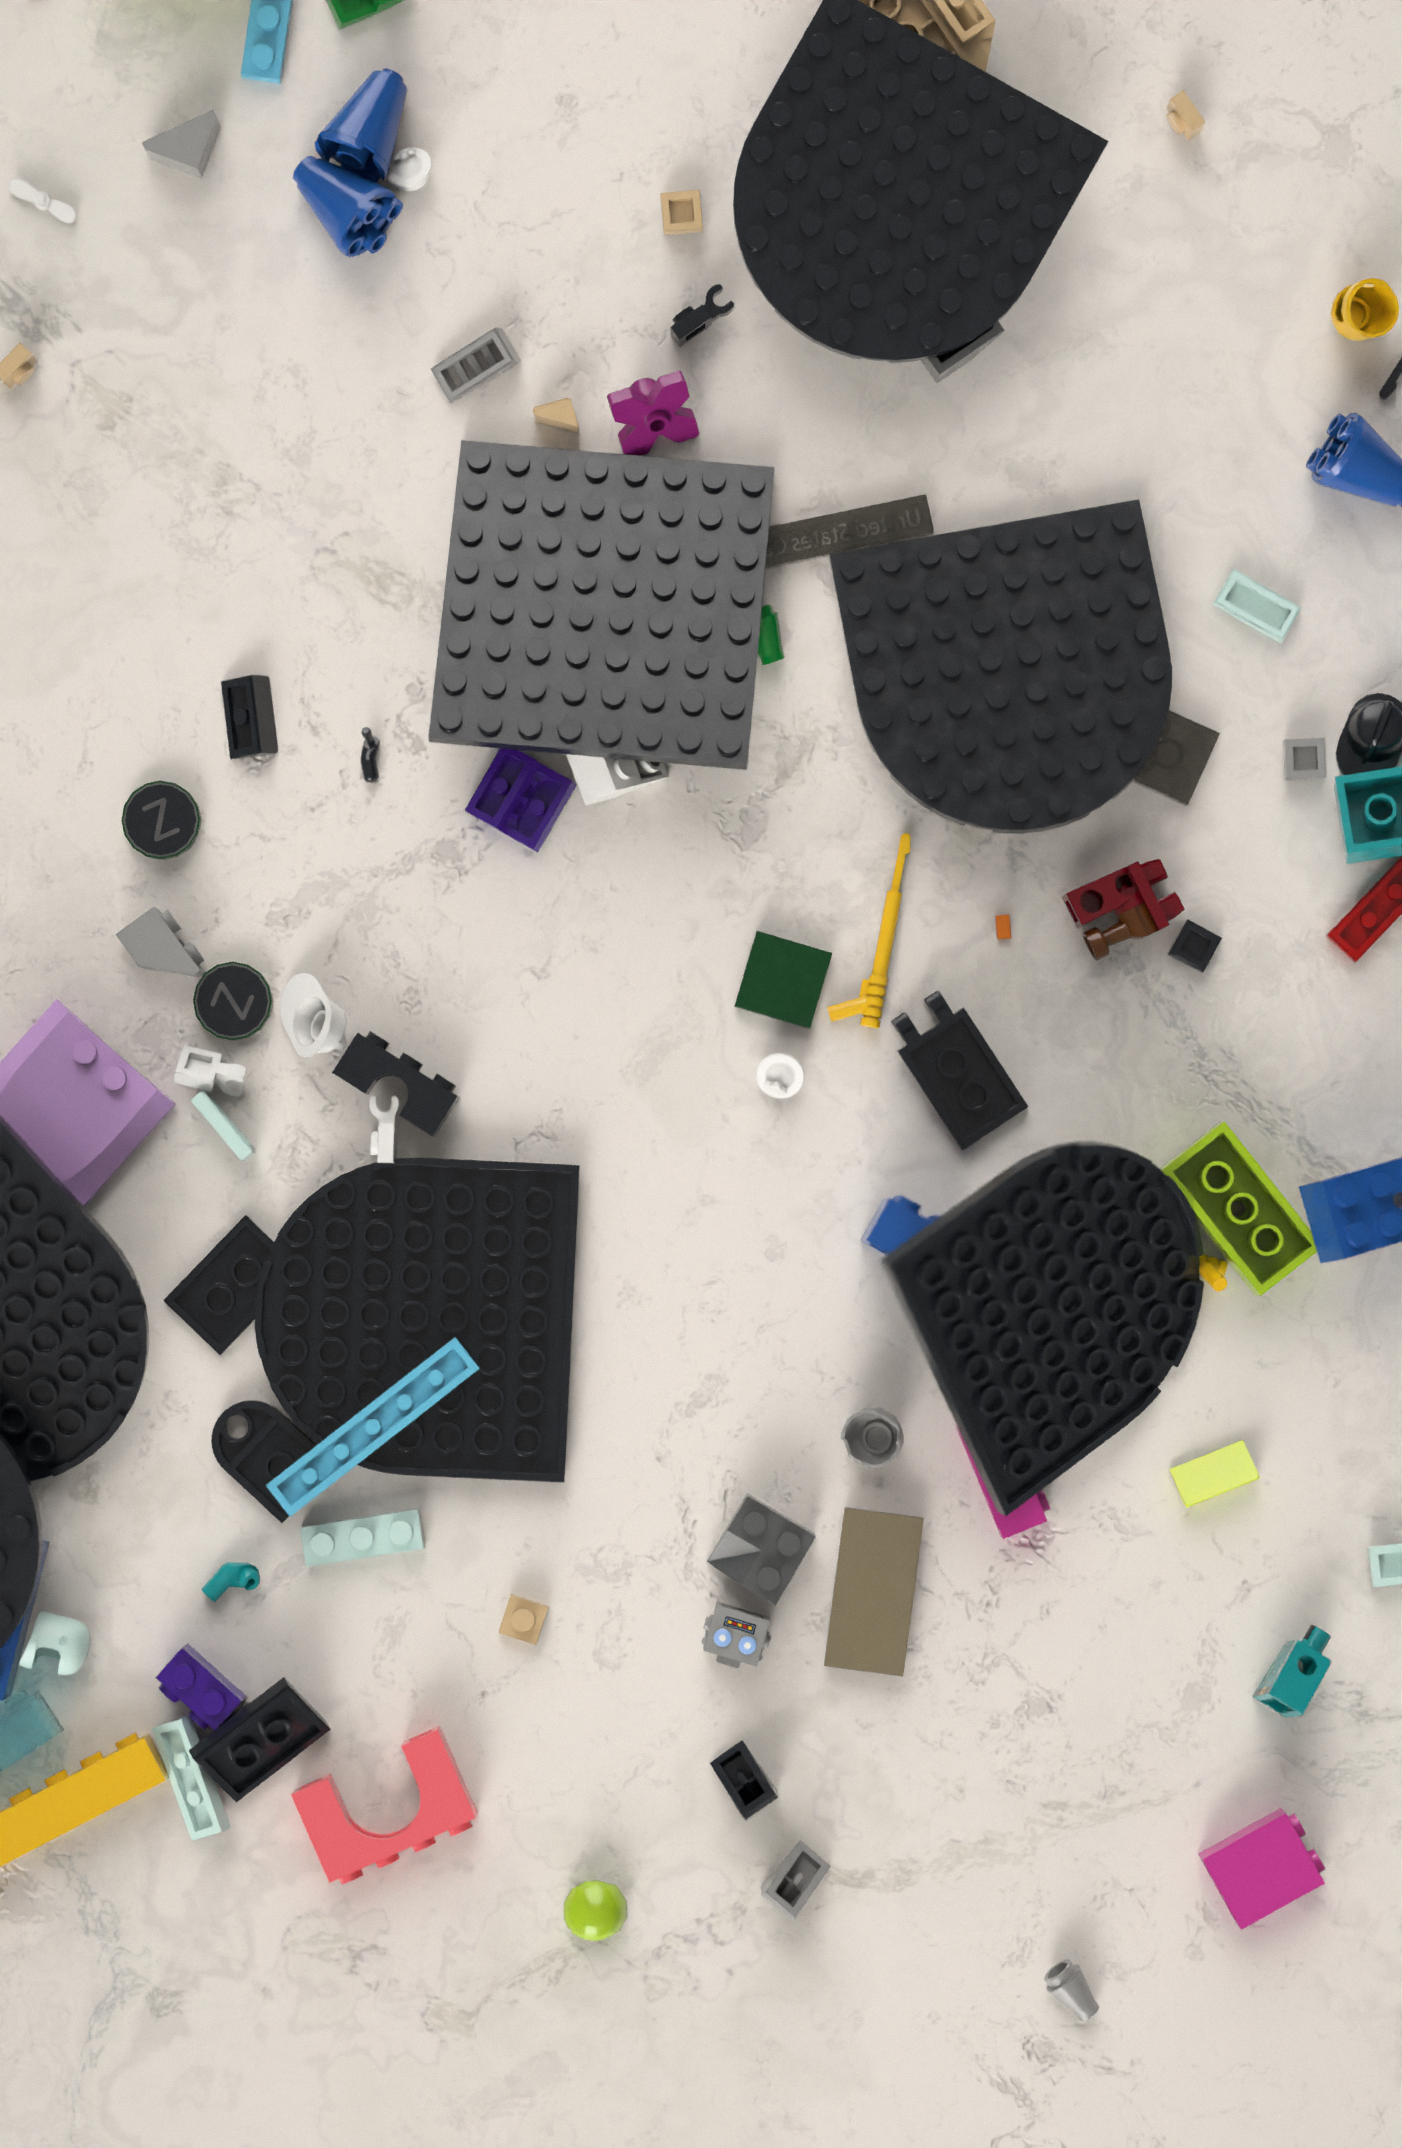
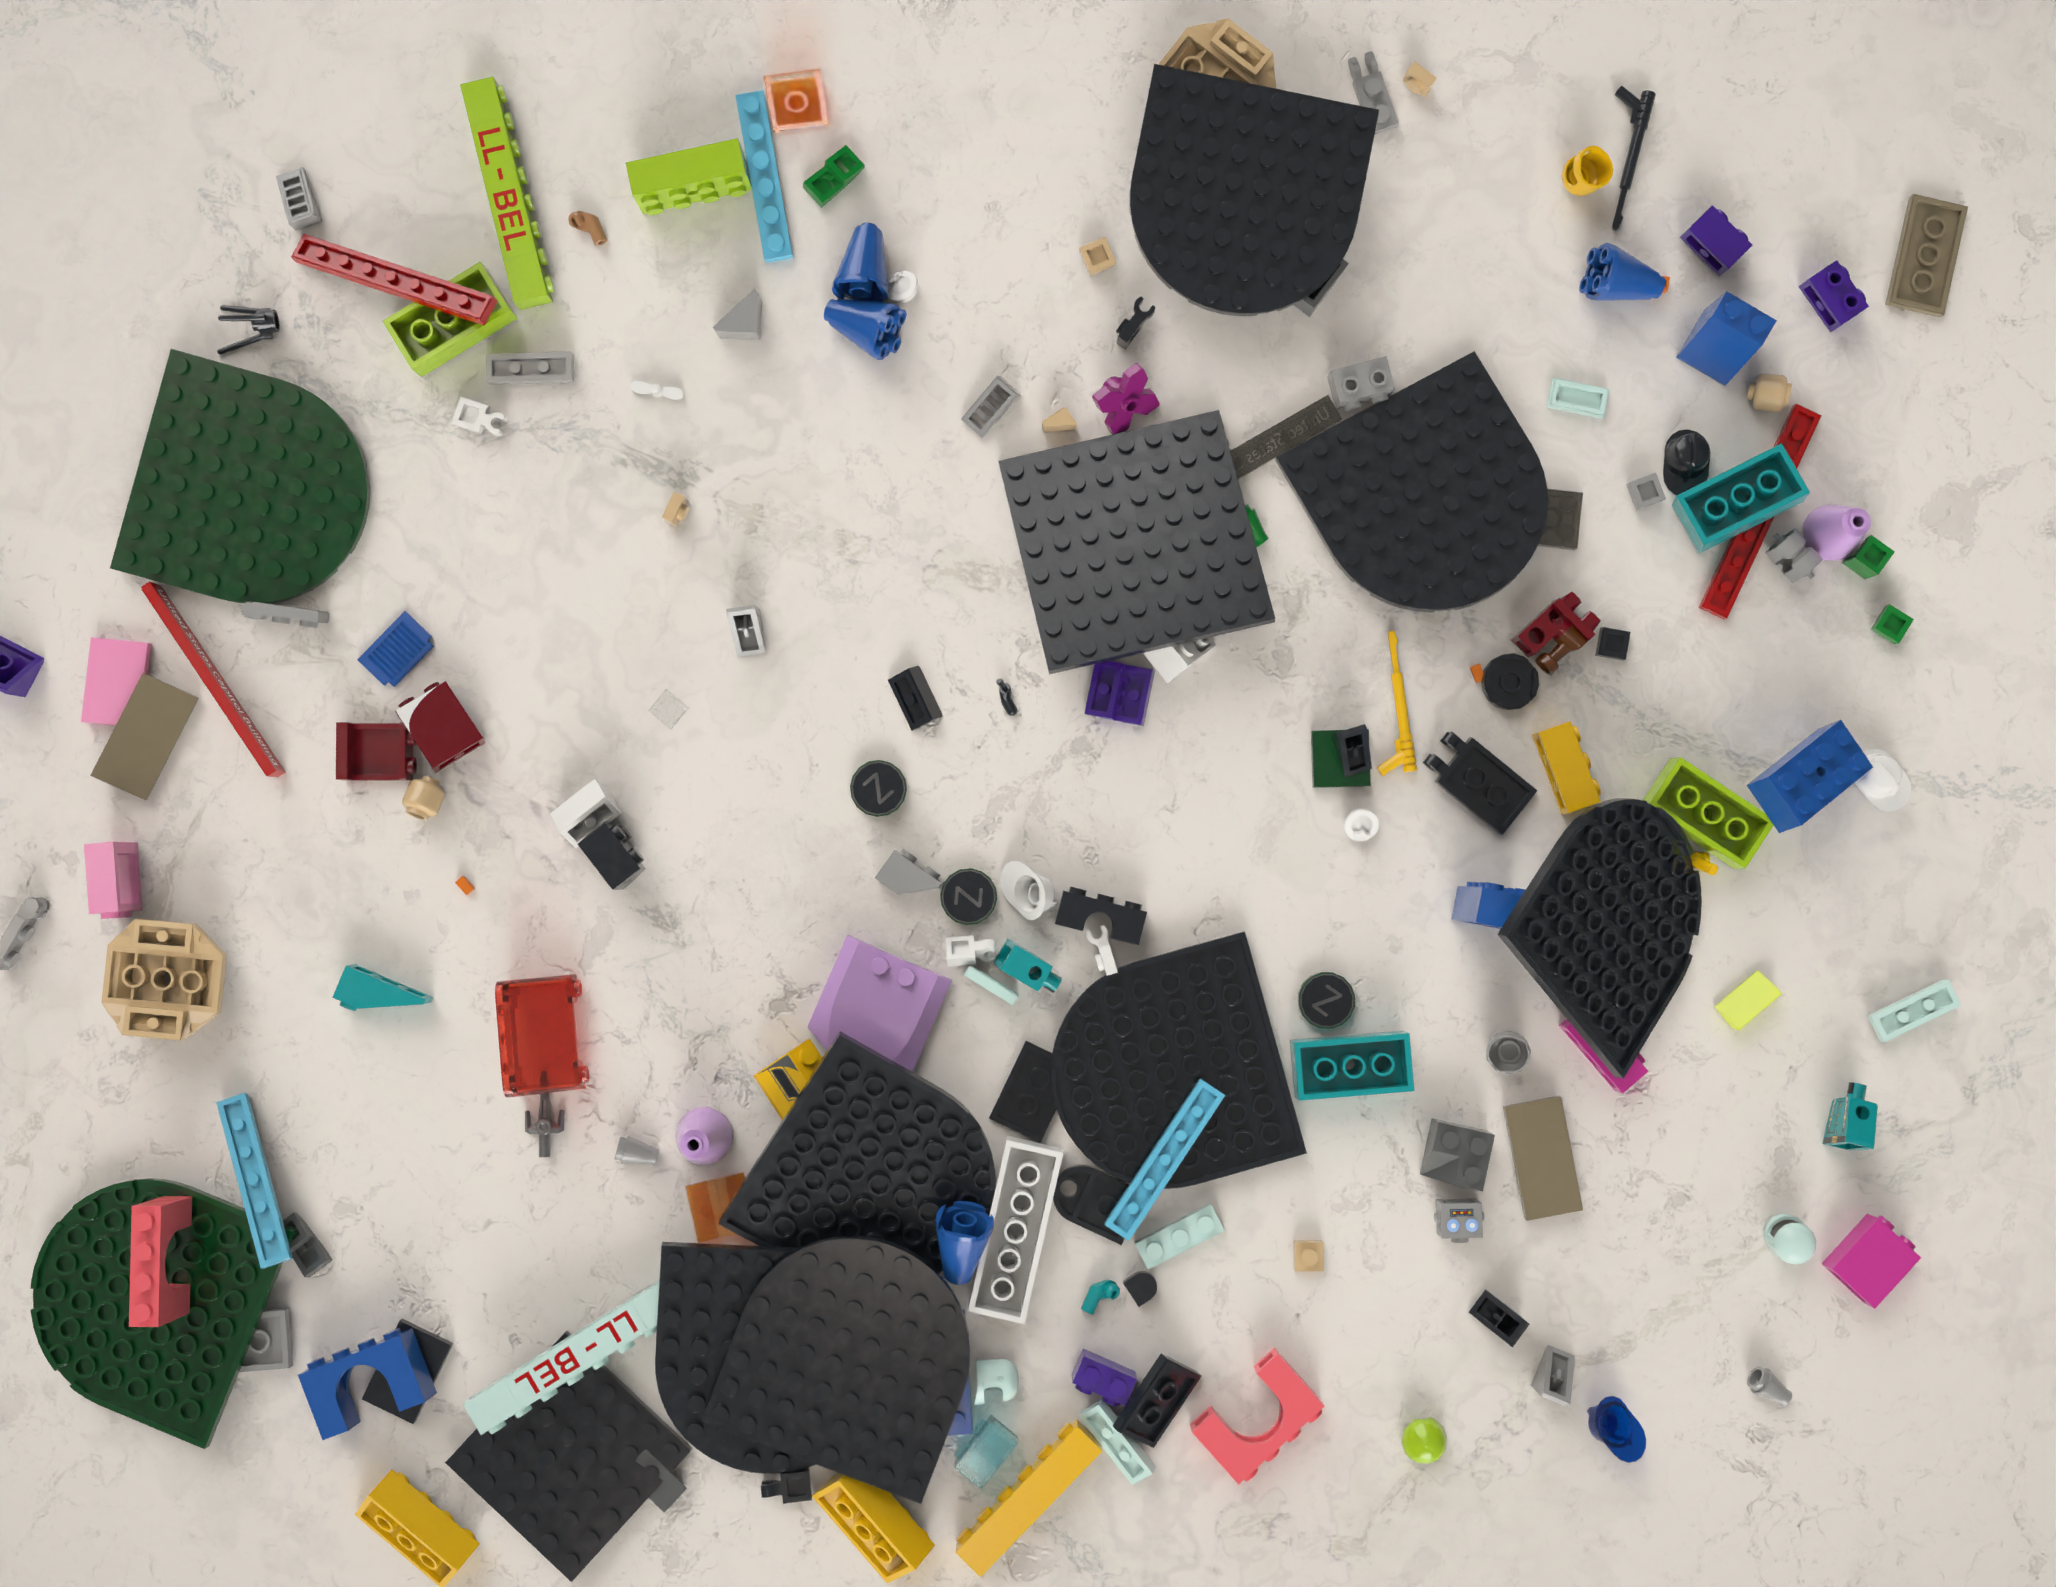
camera: 25 degrees left, 0 degrees up
(56, 555) = (746, 630): none -> light grey slope
(71, 1441) = (962, 1237): none -> blue cone
(148, 1455) = (1020, 1221): none -> white brick
(264, 1105) = (1018, 961): none -> teal torso
(290, 1587) = (1141, 1287): none -> black tile
(620, 1380) = (1379, 1067): none -> teal brick
(658, 1291) = (1326, 1000): none -> black tile
(799, 973) = (1353, 750): none -> black slope
(851, 1976) = (1617, 1429): none -> clear blue piece
(974, 494) = (1361, 383): none -> light grey brick
(1041, 951) = (1510, 681): none -> black tile
(1077, 1085) = (1567, 767): none -> yellow brick
(1119, 117) = (1373, 92): none -> light grey hinge
(1164, 1806) = (1792, 1242): none -> light aqua helmet

